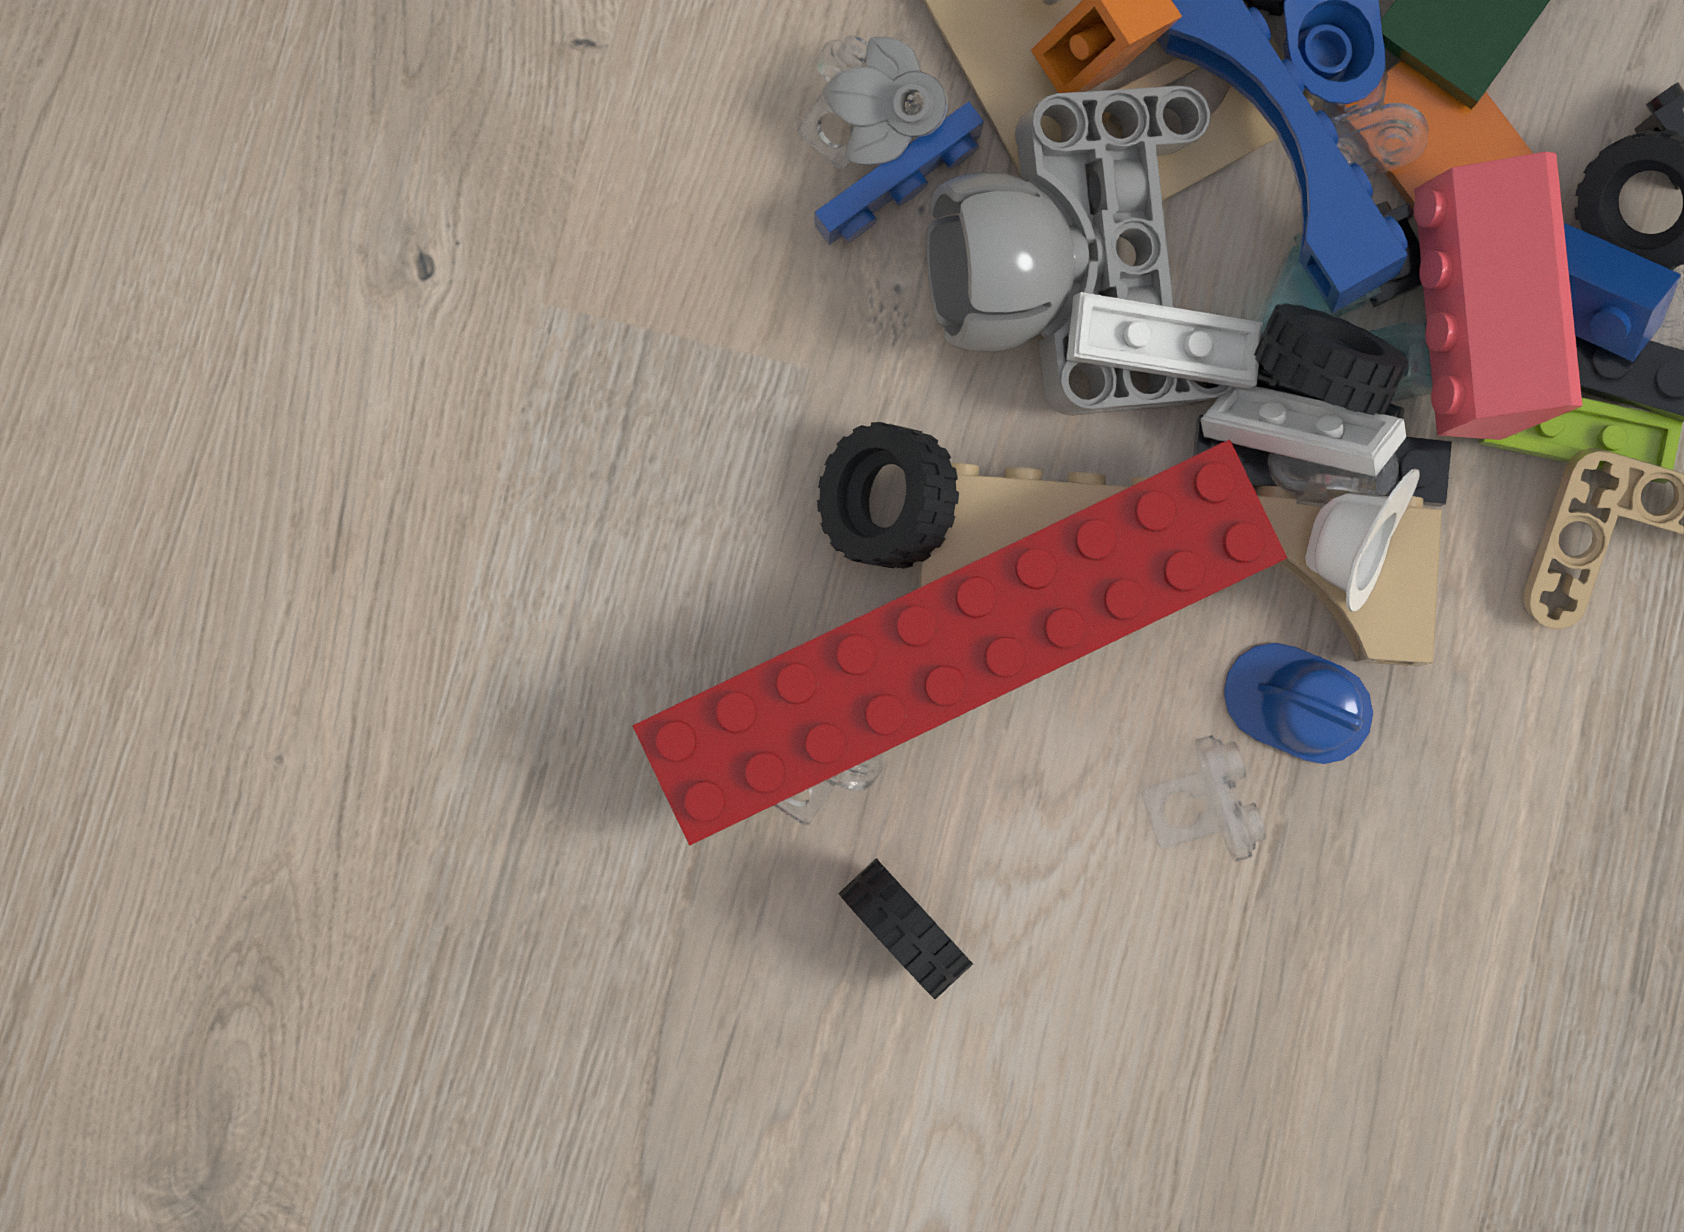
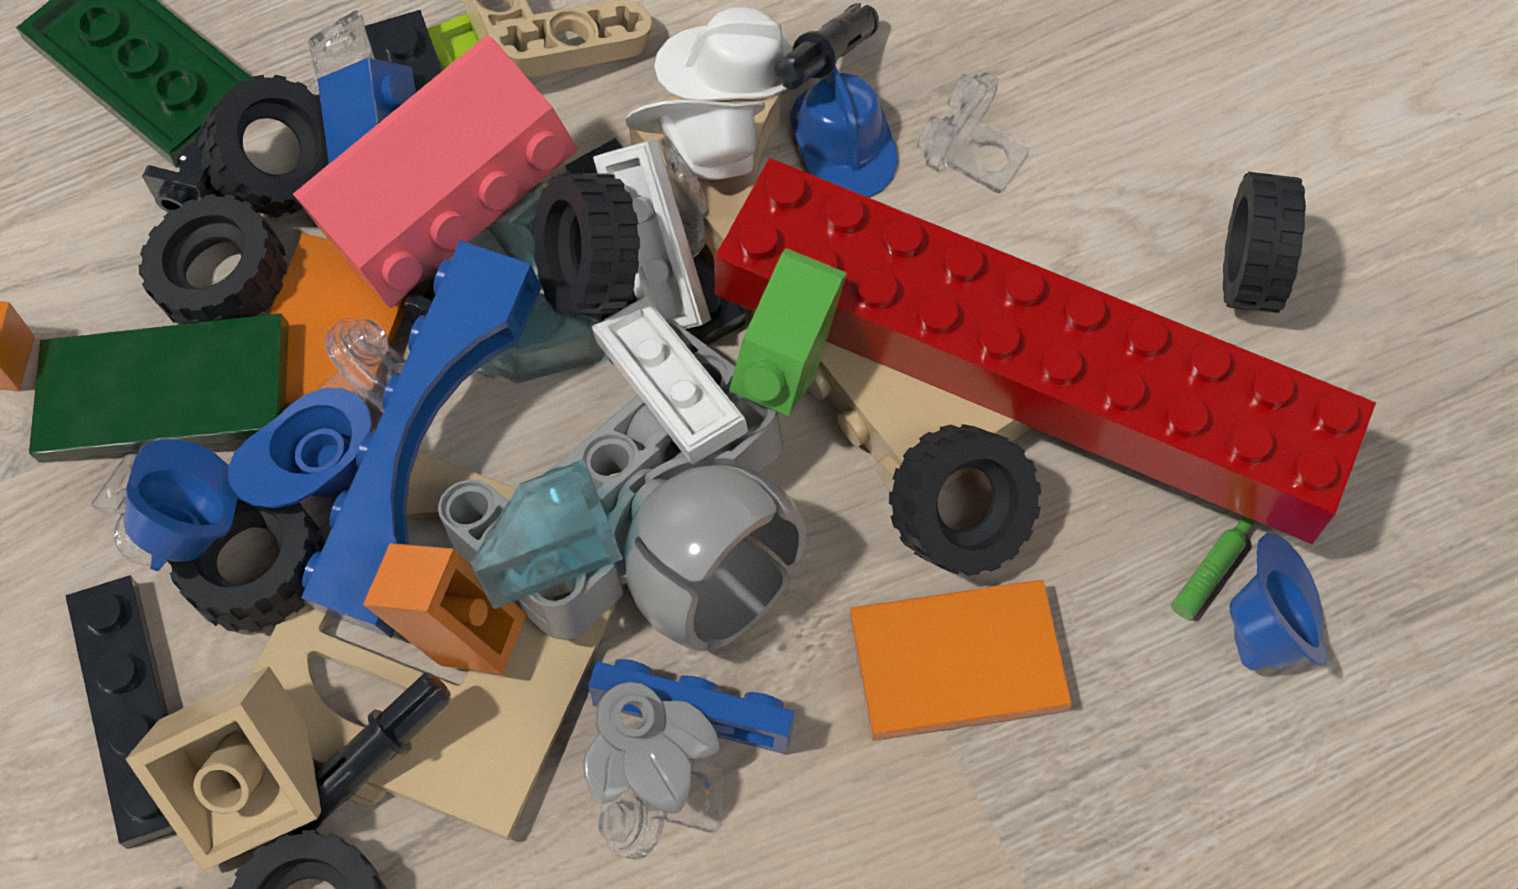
camera: 125 degrees left, 20 degrees down
(611, 666) = (1278, 611): none -> blue piece
(687, 648) = (1212, 570): none -> bright green piece
(779, 404) = (958, 659): none -> orange tile
(1094, 135) = (546, 536): none -> clear light blue slope
(1115, 441) = (788, 333): none -> bright green slope
(1380, 717) = (818, 51): none -> black axle
(1434, 637) = (725, 58): none -> white piece
(1607, 53) = (190, 232): none -> black tyre

